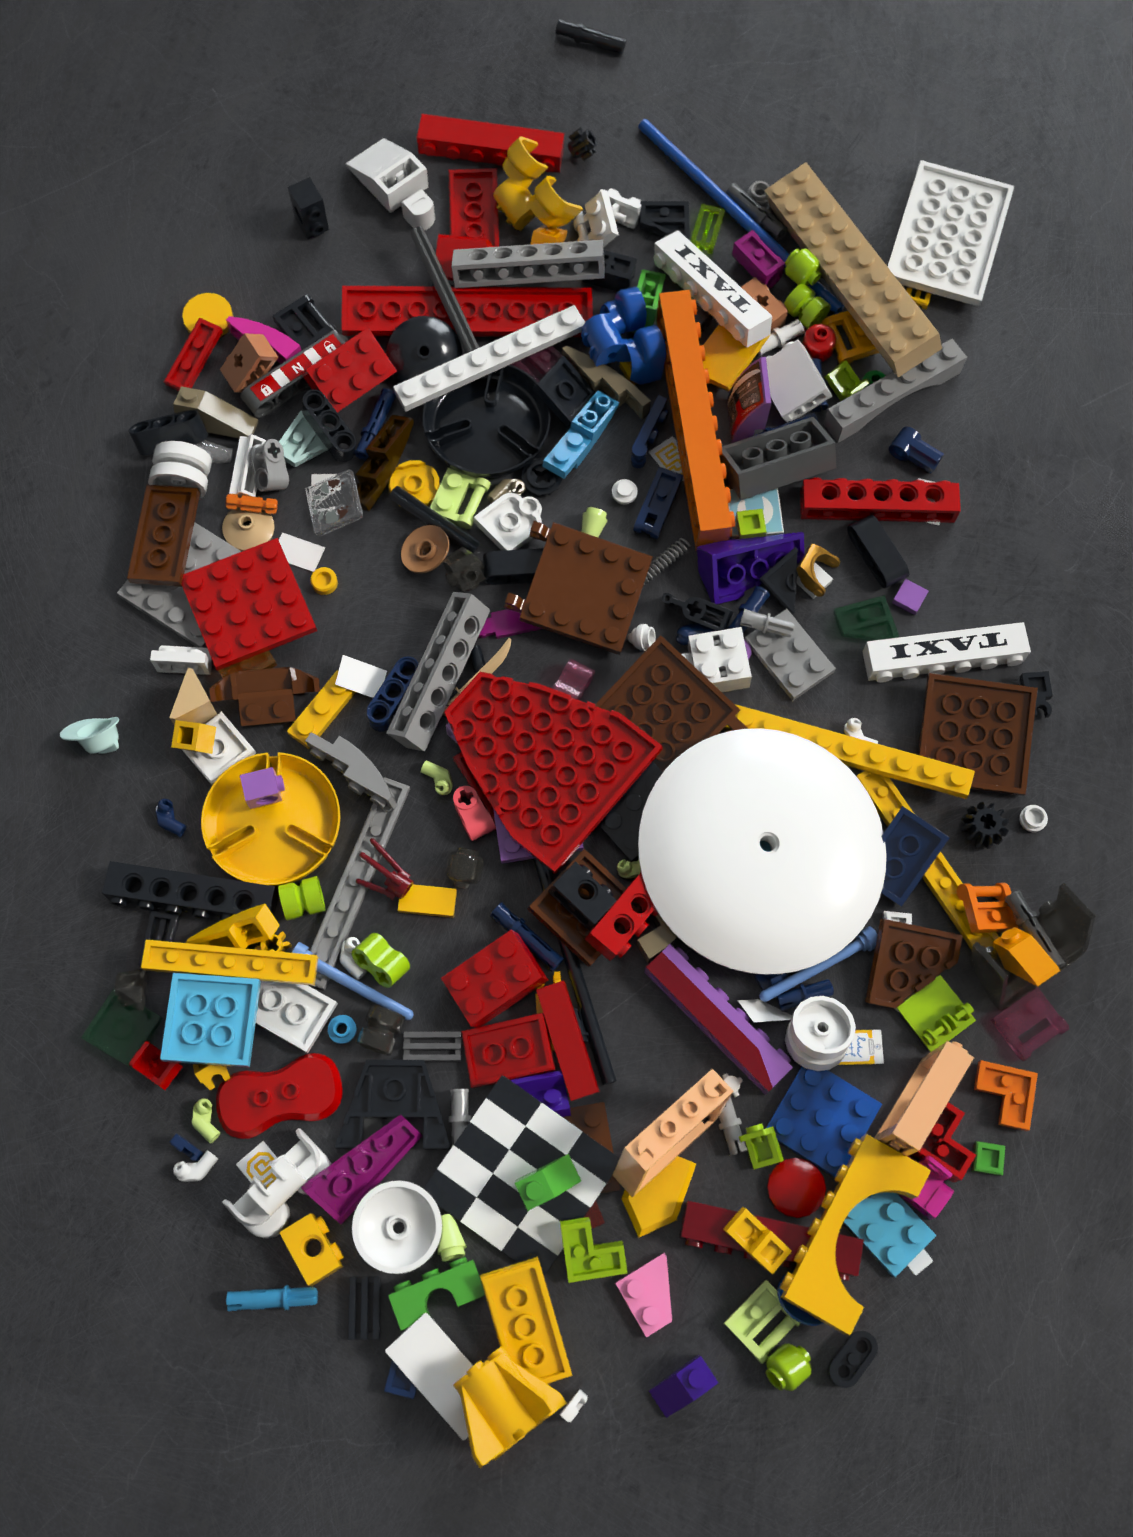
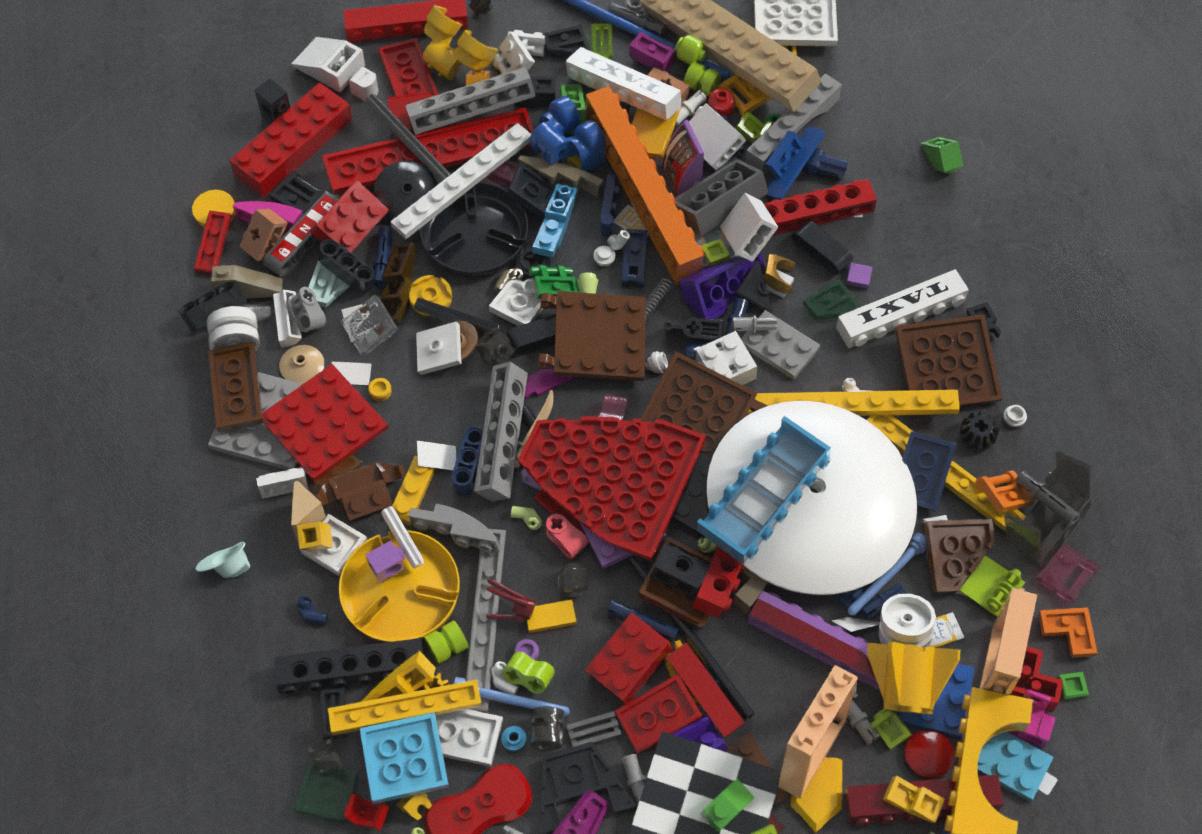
camera: 15 degrees left, 10 degrees down
(251, 504) = (300, 344): orange axle -> none
(290, 764) = (402, 537): none -> white axle
(317, 256) = (291, 139): none -> red brick
(390, 931) = (528, 647): none -> medium lavender tile
(402, 551) = (438, 348): none -> white plate
(452, 493) = (464, 291): yellowish green plate -> none
(548, 511) = (552, 280): none -> green plate
(645, 478) = (618, 241): none -> white arm
(706, 833) = (765, 491): none -> window
(797, 506) = (748, 227): none -> white brick
(801, 1098) = (911, 675): none -> yellow brick
(875, 433) = (790, 159): none -> blue bracket
(1024, 956) = (1047, 517): light orange slope -> none
(1059, 475) = (943, 154): none -> bright green slope

